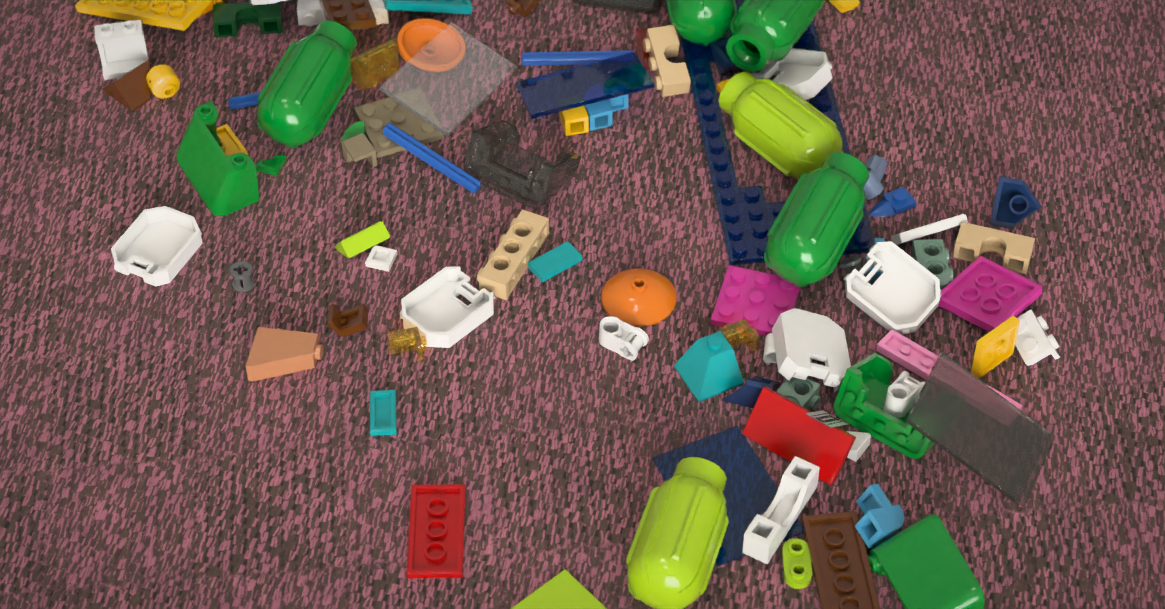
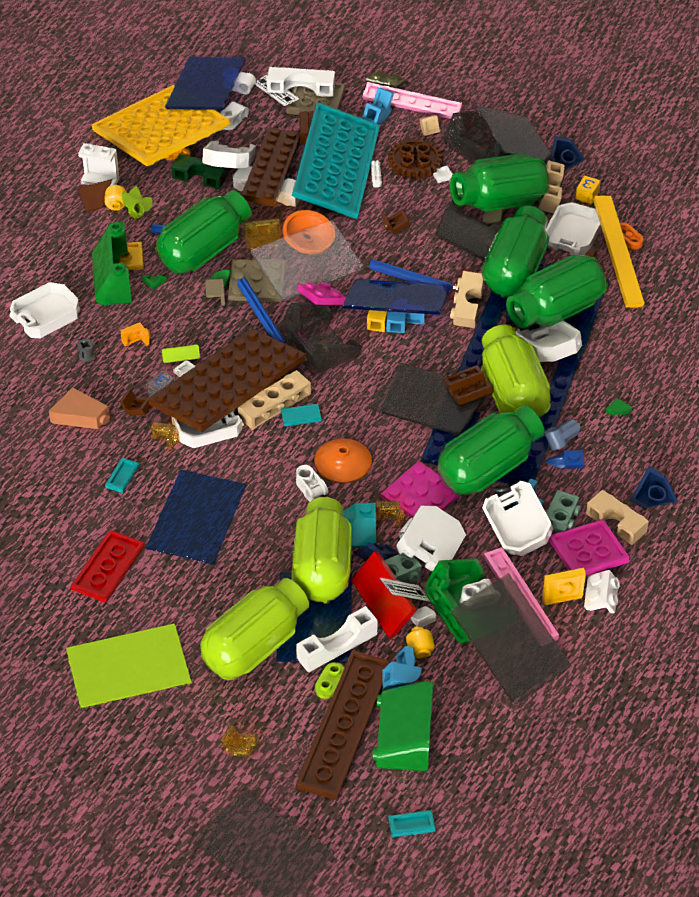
camera: 25 degrees right, 0 degrees up
(195, 82) = (135, 202): none -> lime plate
(291, 234) = (135, 333): none -> light orange bracket
(366, 287) = (159, 382): none -> clear brick
(444, 251) = (226, 379): none -> reddish brown plate
(492, 111) = (321, 293): none -> dark pink plate
(506, 429) = (196, 516): none -> clear blue piece
(695, 189) = (423, 399): none -> clear smoke piece
(699, 408) = (322, 550): none -> lime piece
(735, 157) = (468, 385): none -> reddish brown slope
(873, 472) = (421, 641): none -> yellow head
(909, 126) = (618, 407): none -> green tile
(929, 229) = (578, 487): white tile -> none

